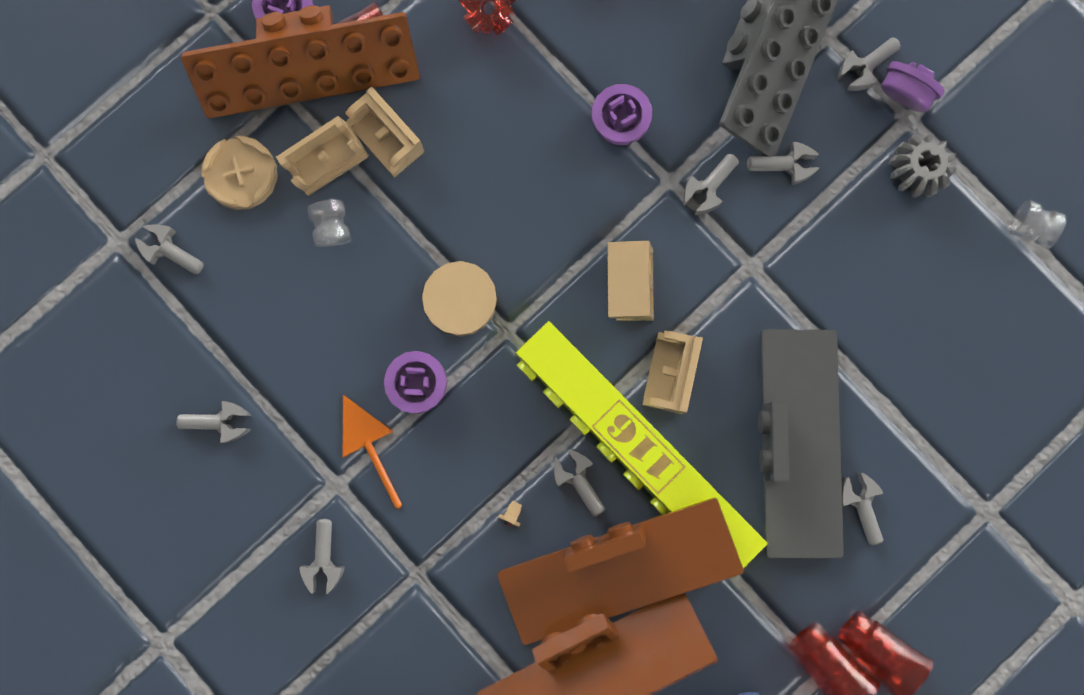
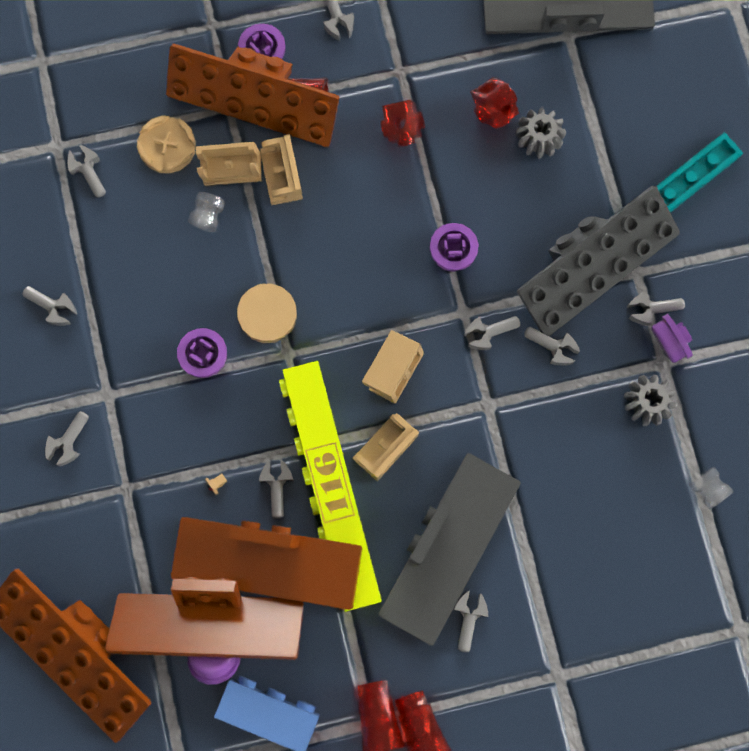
camera: 25 degrees right, 5 degrees down
(360, 431) = (145, 366): orange piece -> none

